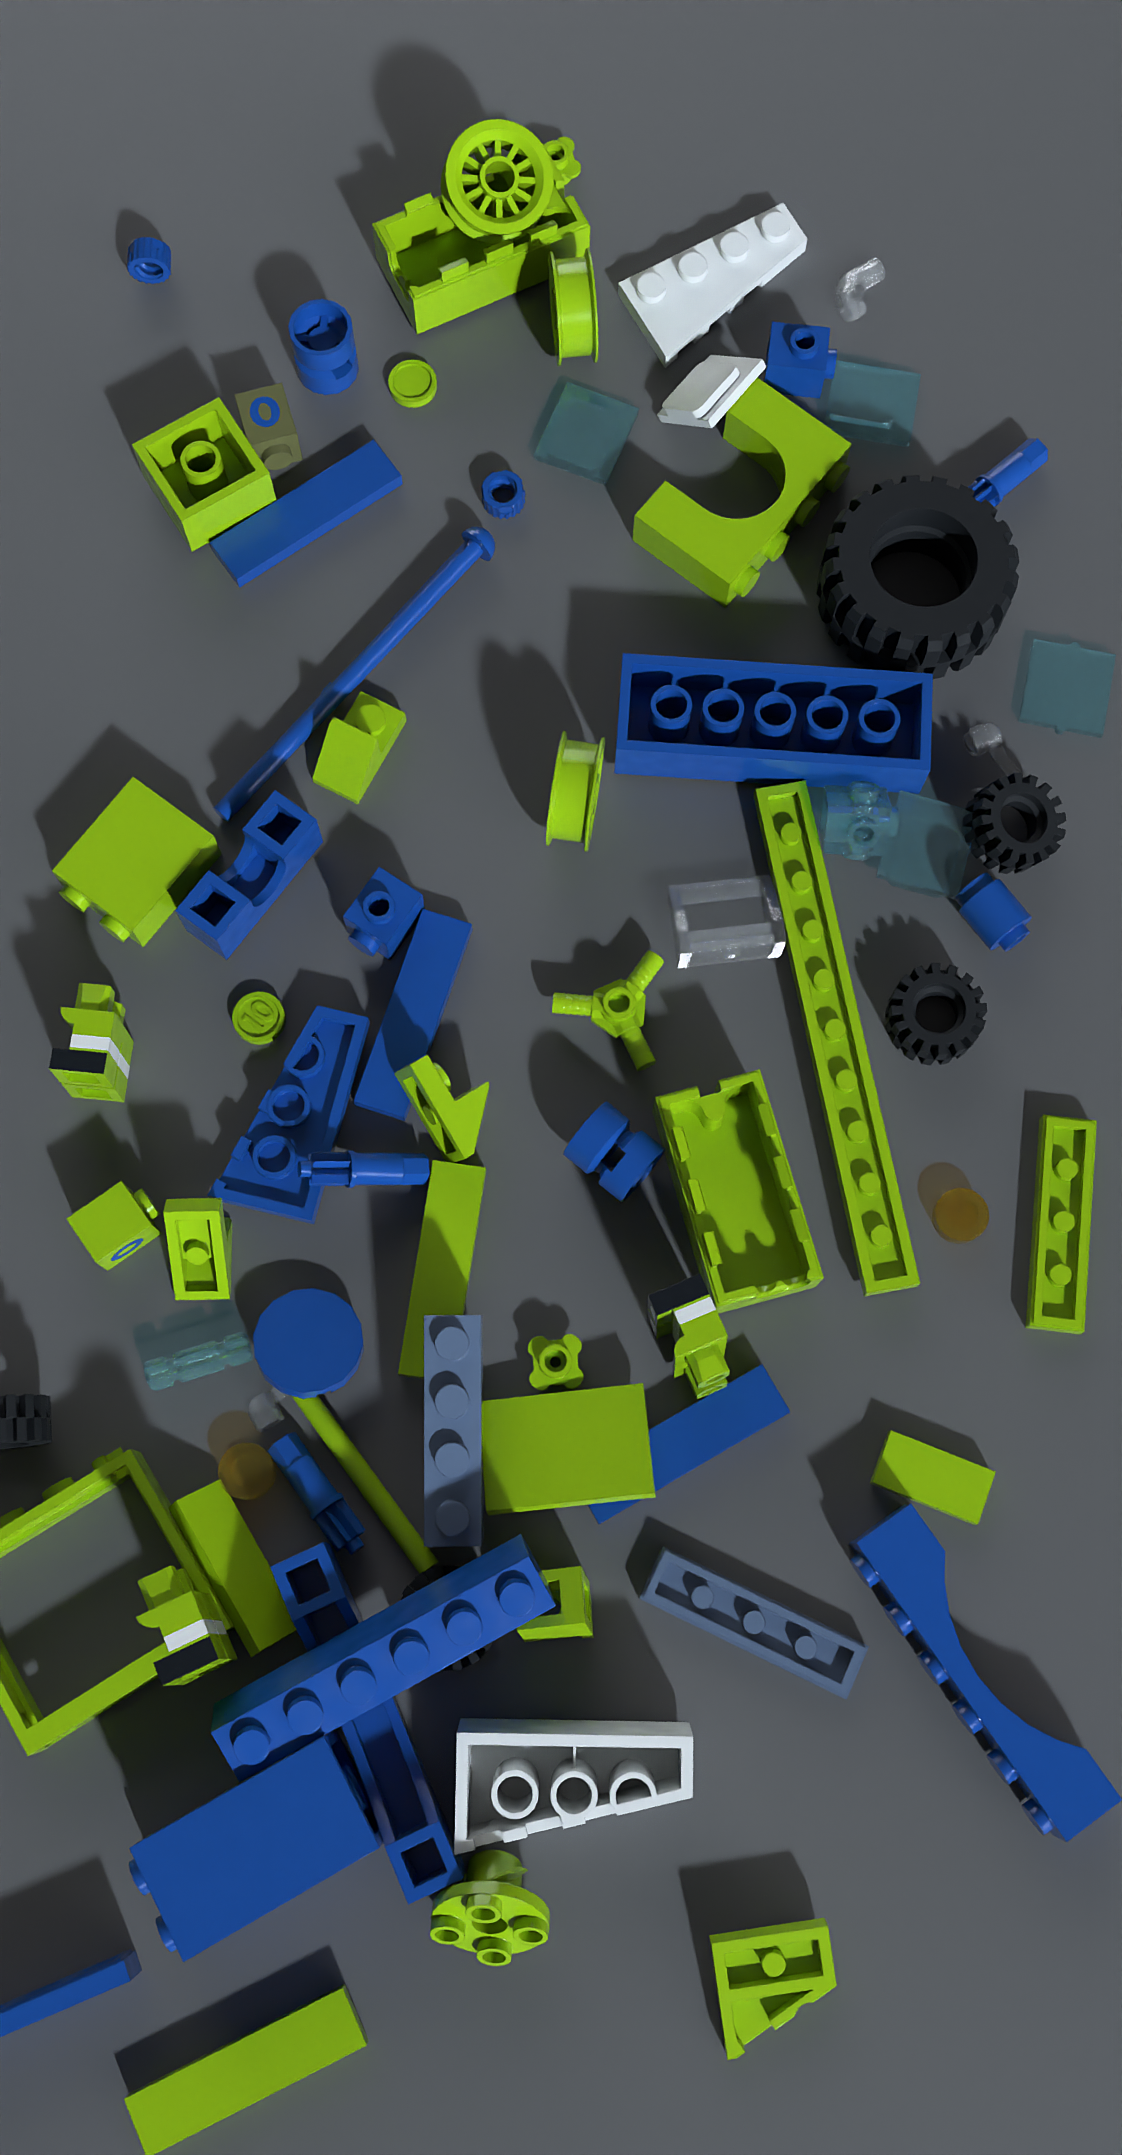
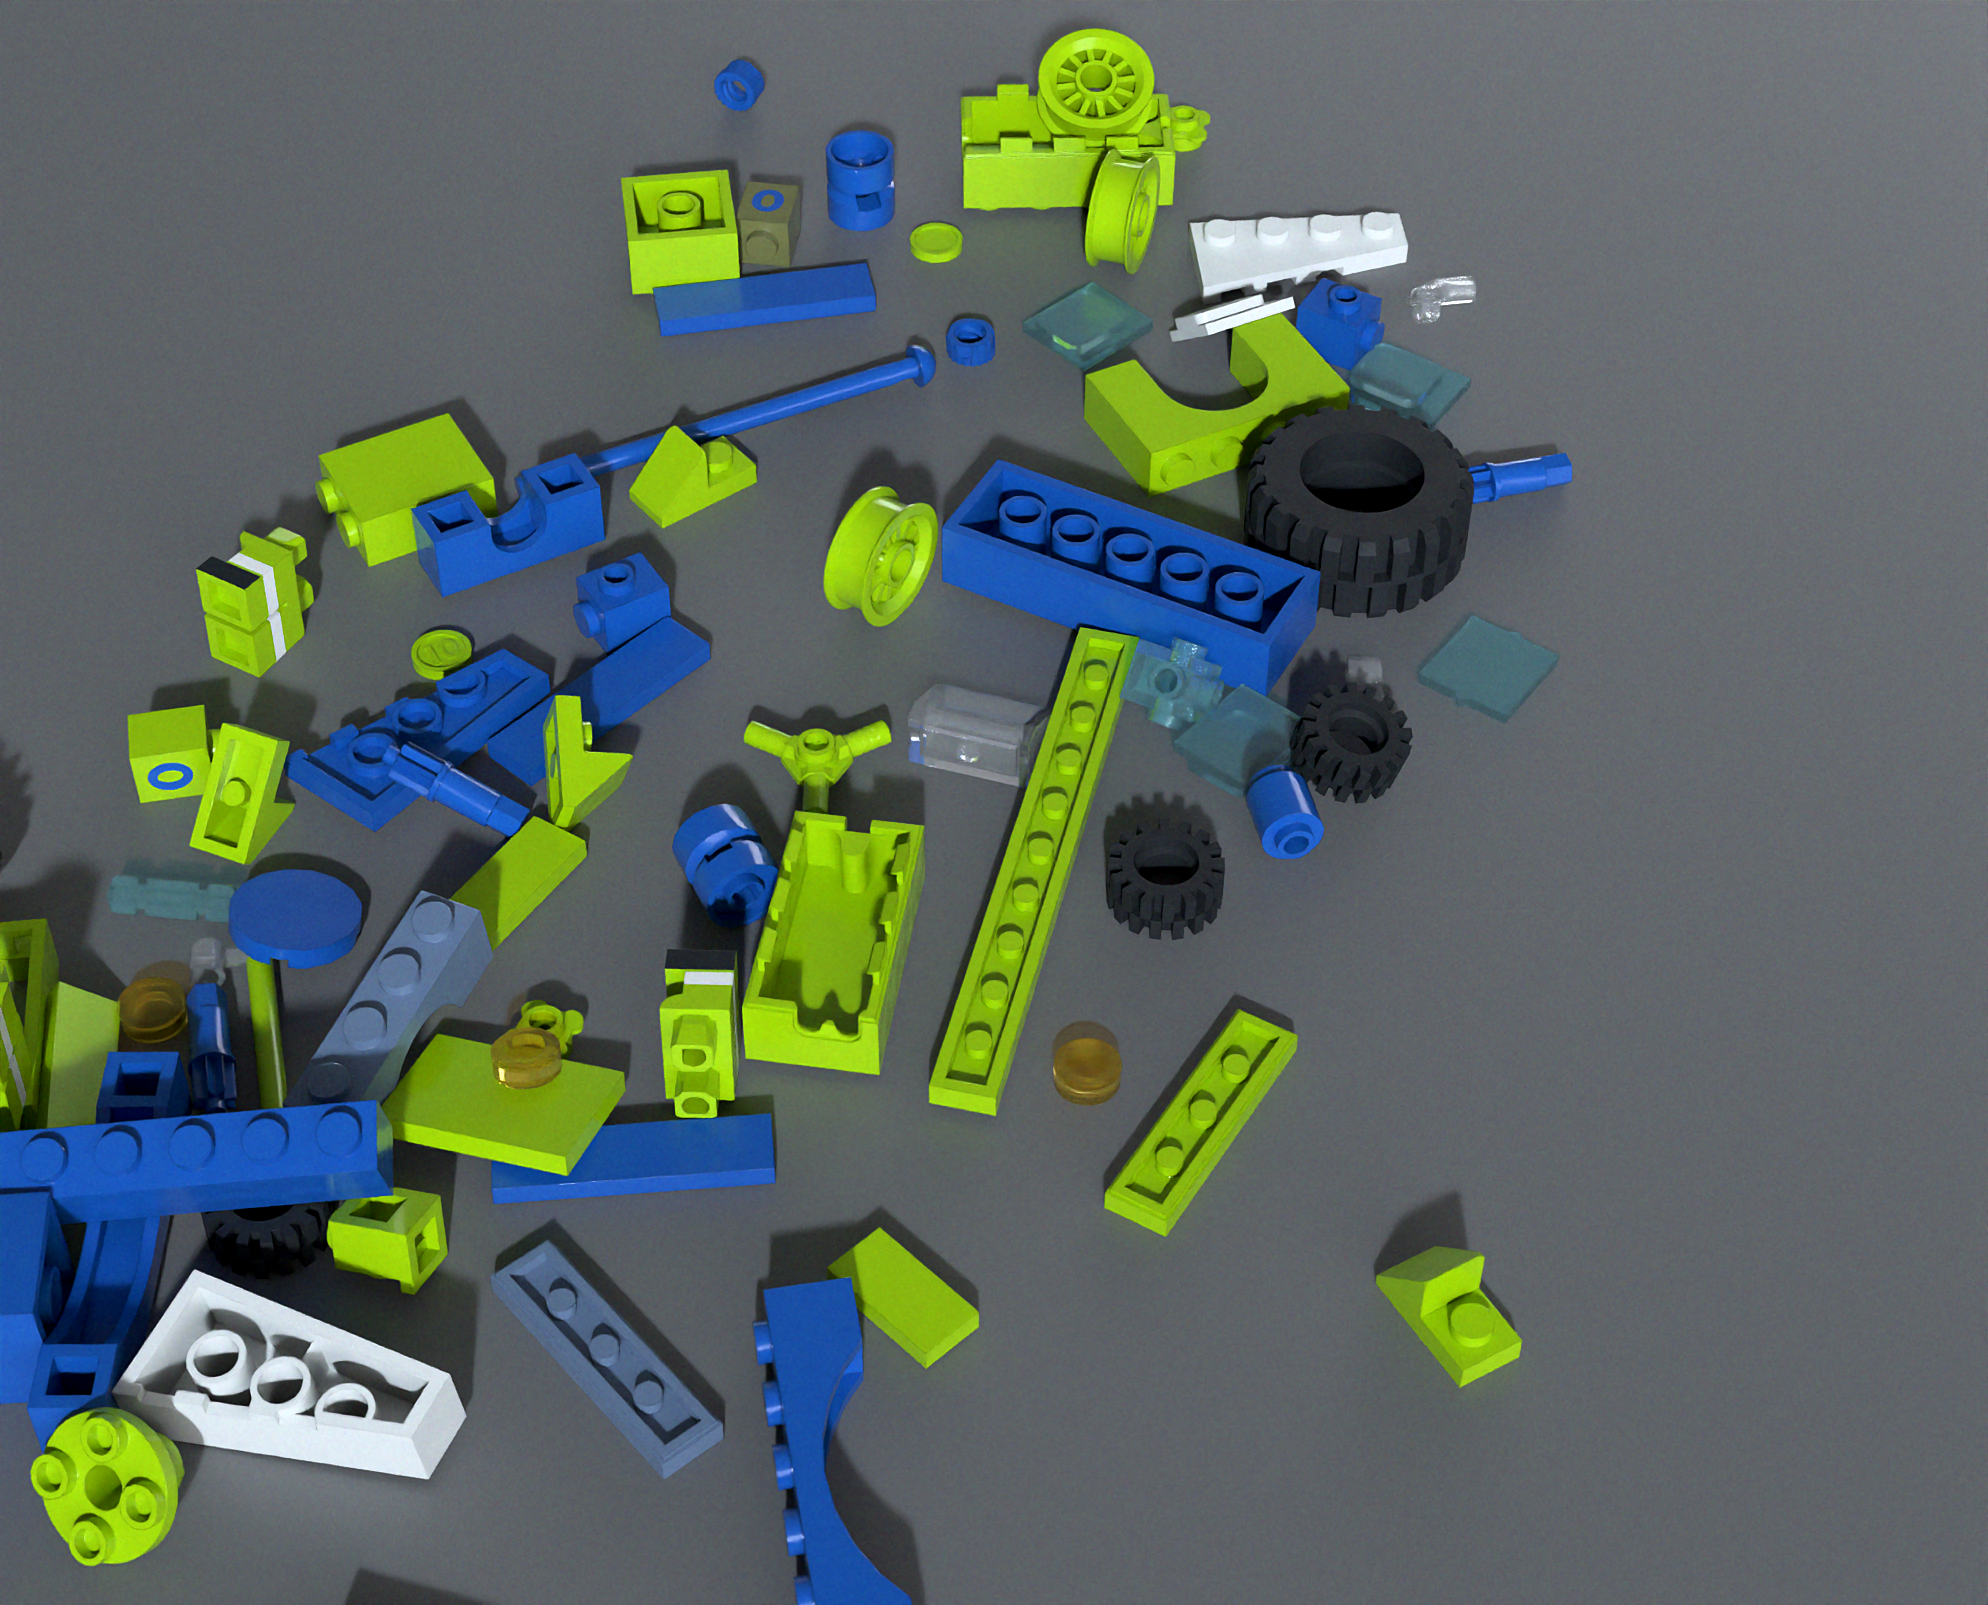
camera: 25 degrees right, 30 degrees down
(568, 1407) = (526, 1058): none -> clear yellow tile

